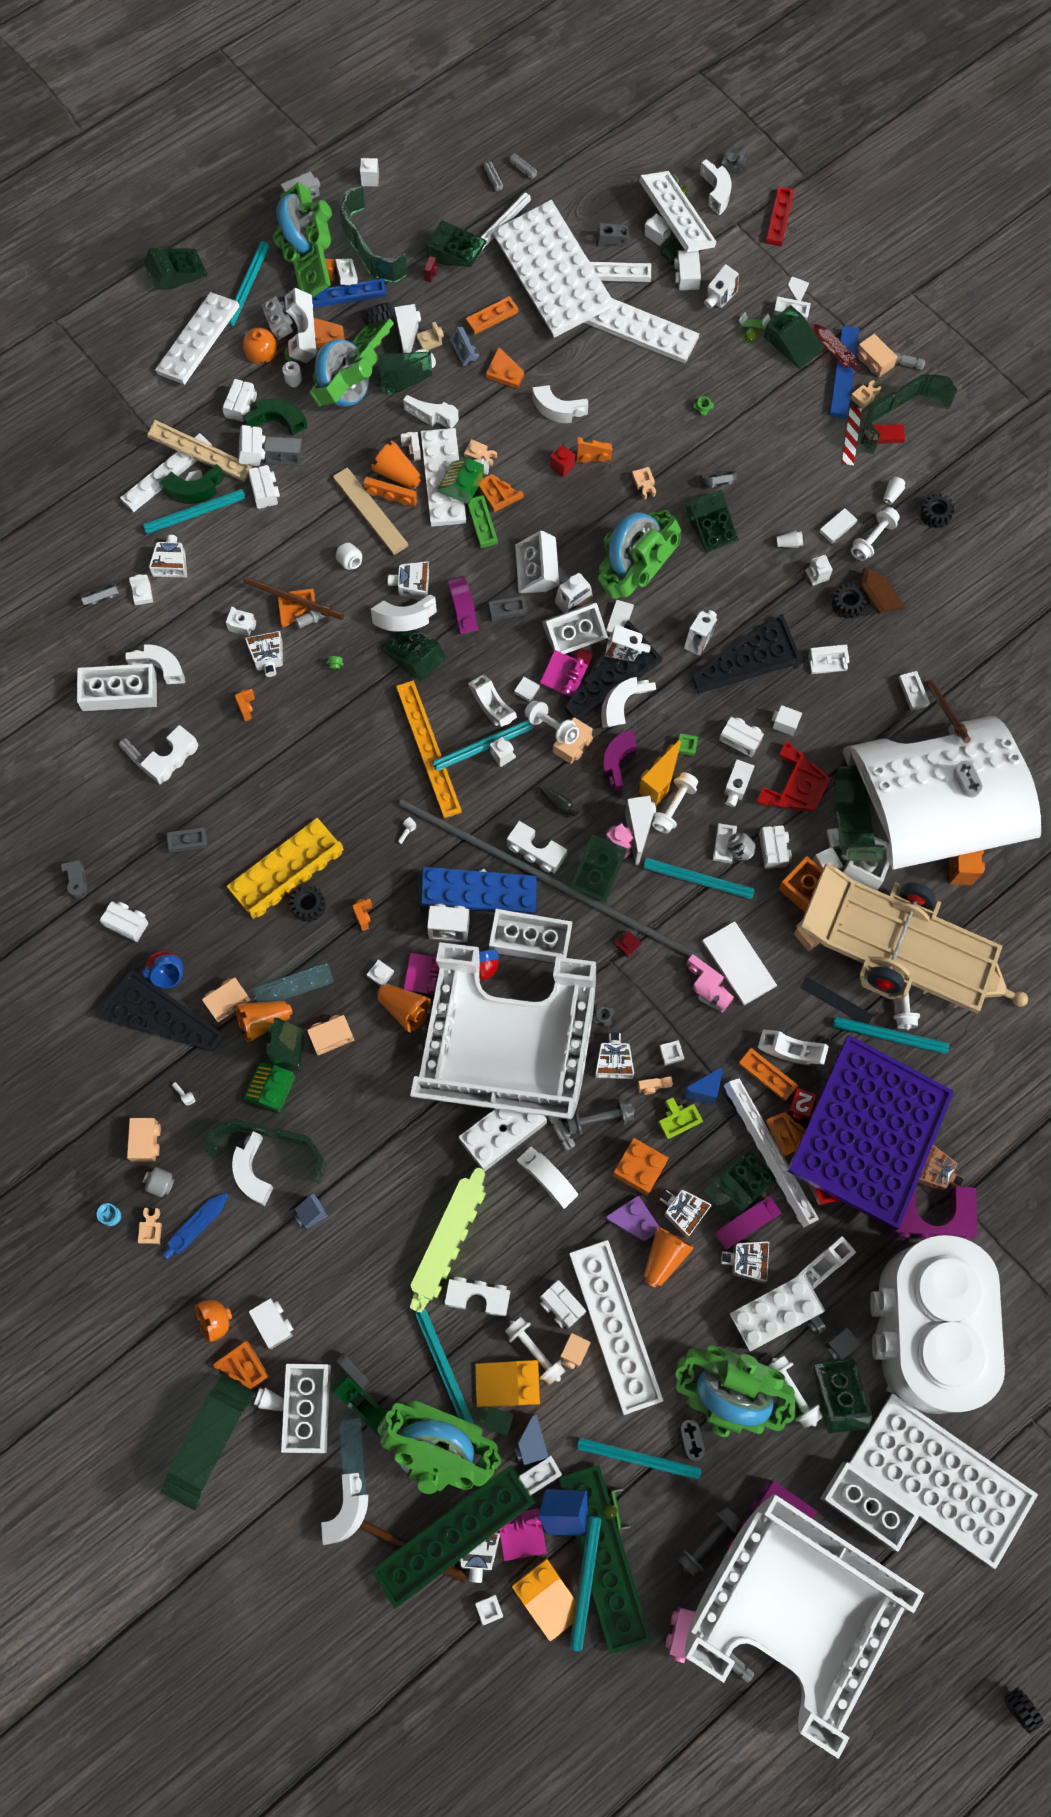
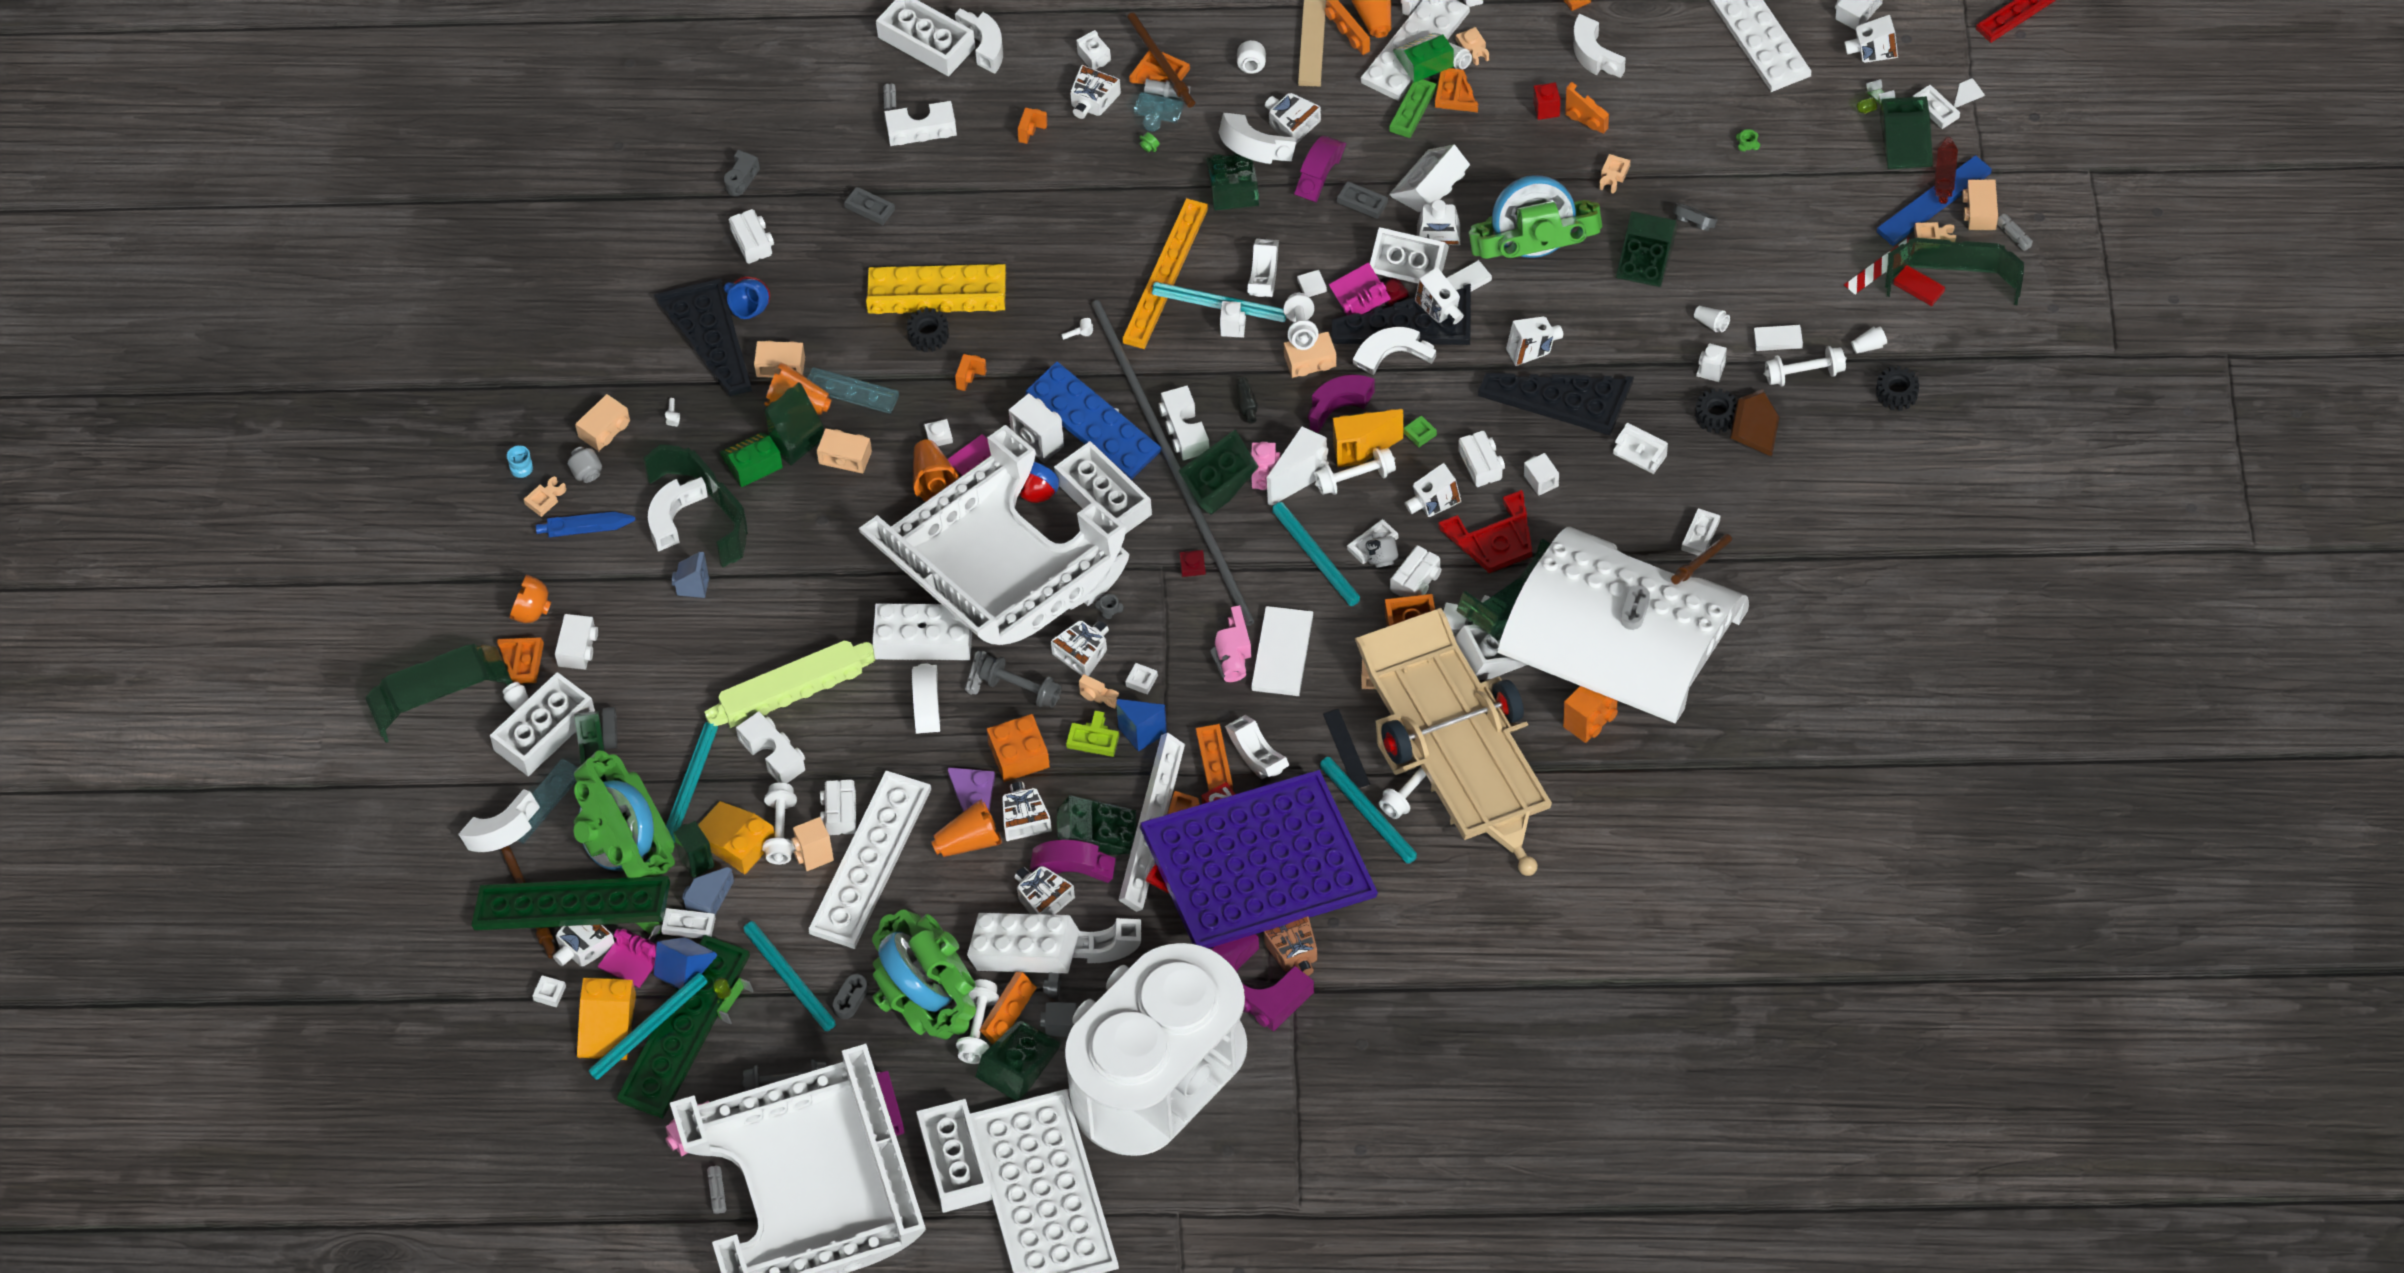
camera: 45 degrees right, 15 degrees down
(319, 634) = (1157, 109): none -> clear light blue plate
(803, 1365) = (1008, 1007): none -> orange plate

